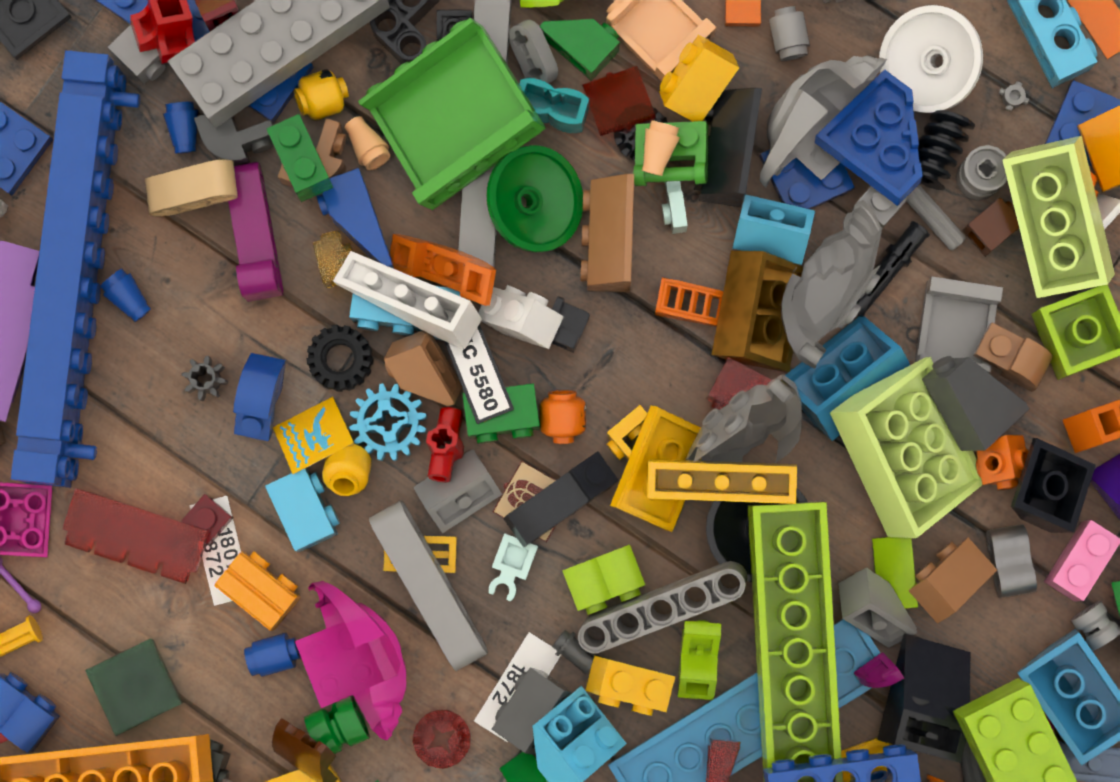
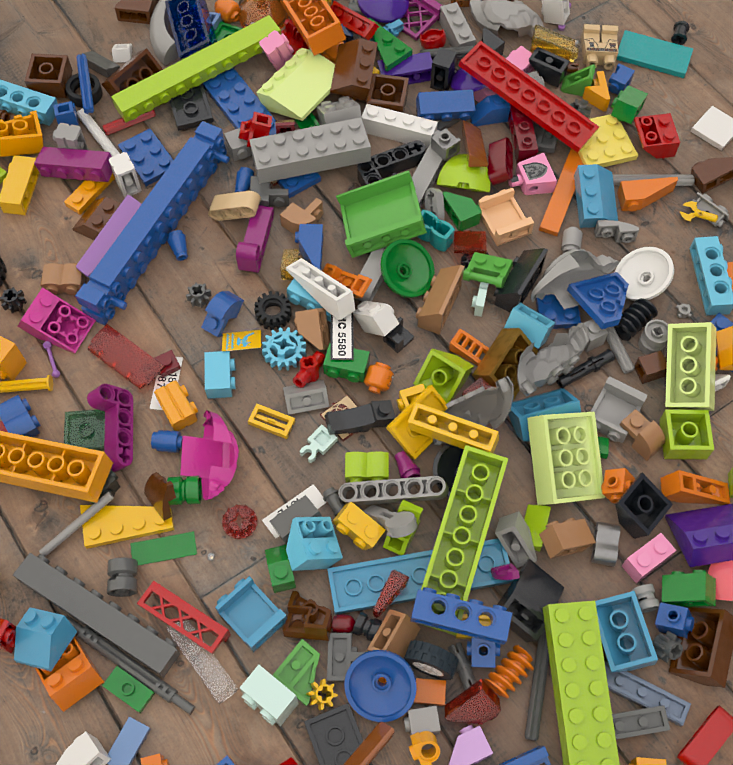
camera: 15 degrees right, 20 degrees down
(204, 707) = (118, 422): none -> magenta beam
(299, 158) = (294, 205): green piece -> none
(320, 94) = (318, 188): yellow head -> none
(347, 470) = (251, 361): yellow head -> none
(367, 144) = (332, 220): light nougat cone -> none
(428, 585) = (268, 435): light grey beam -> none
(659, 146) = (483, 258): light nougat cone -> none
(665, 371) = (445, 373): none -> lime slope
(667, 554) = (406, 466): none -> magenta cone
(694, 665) = (397, 524): none -> light grey piece
(698, 79) = (515, 240): yellow brick -> none
(972, 402) = (611, 443): dark grey slope -> none

